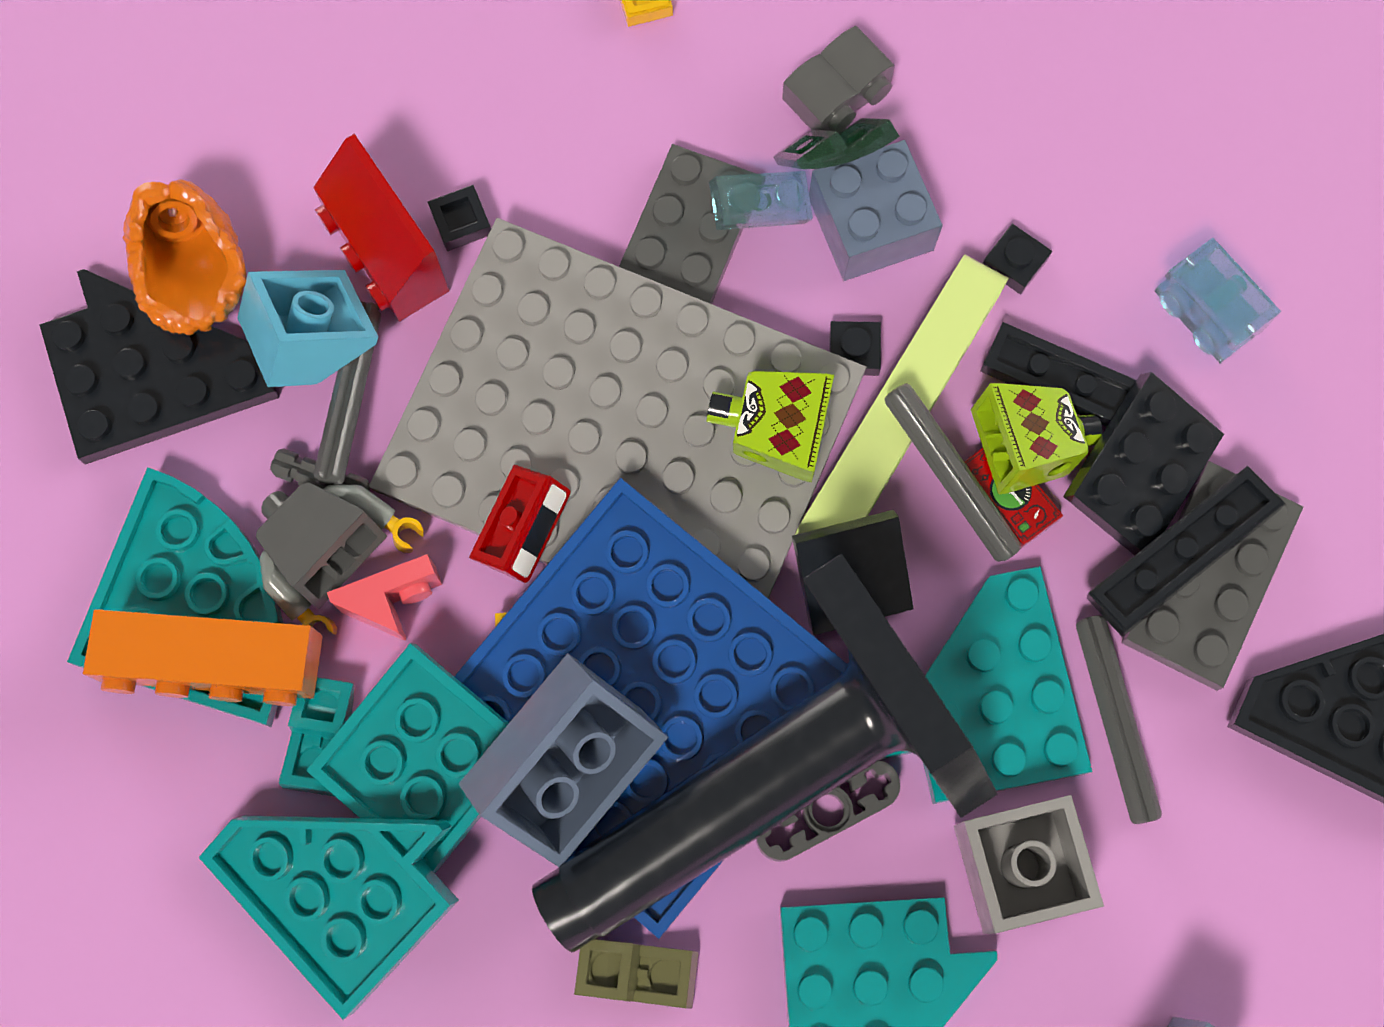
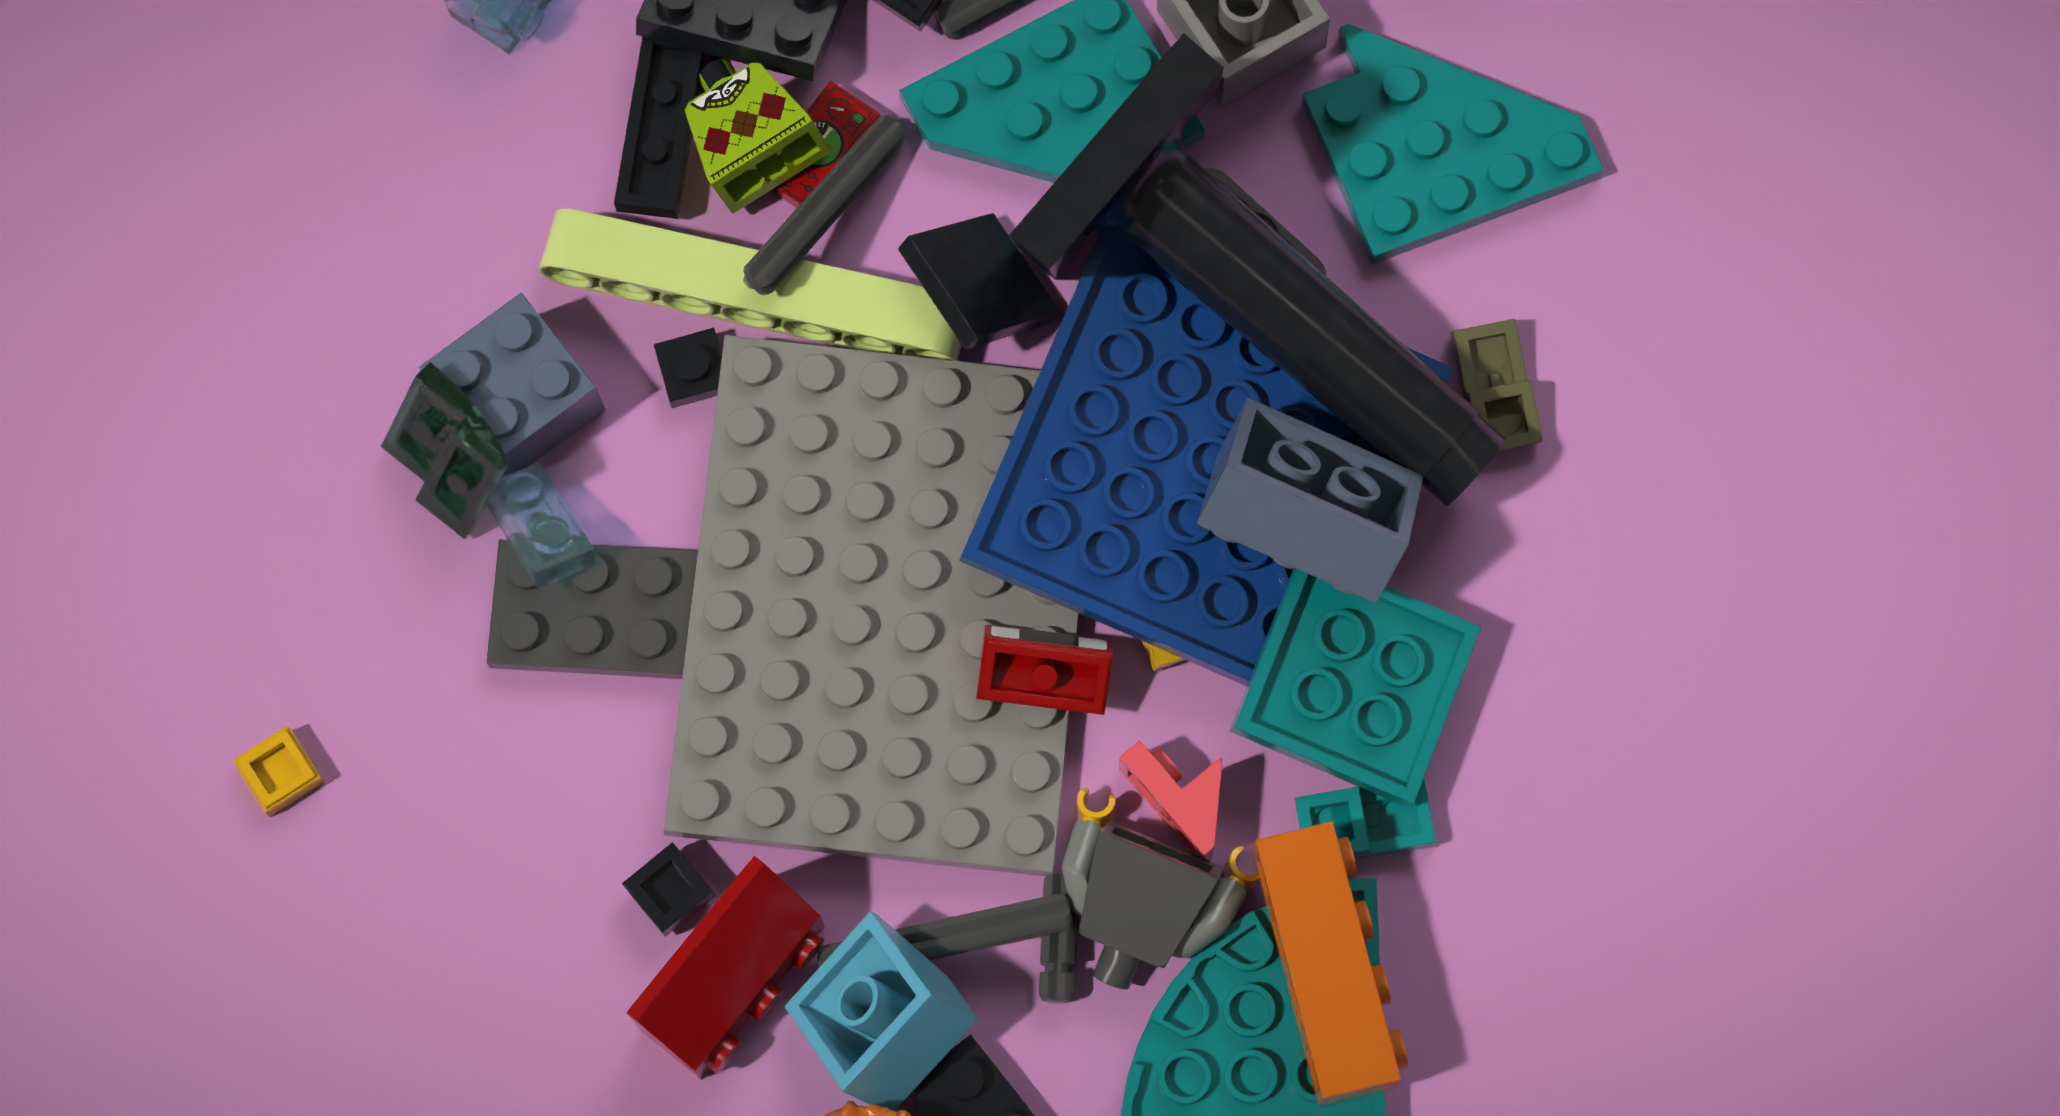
camera: 105 degrees left, 0 degrees up
(335, 893) = (1533, 723): teal wing -> none
(777, 419) = (832, 401): lime torso -> none
(839, 82) = (344, 482): dark grey brick -> none
(1018, 258) = (518, 215): black plate -> none

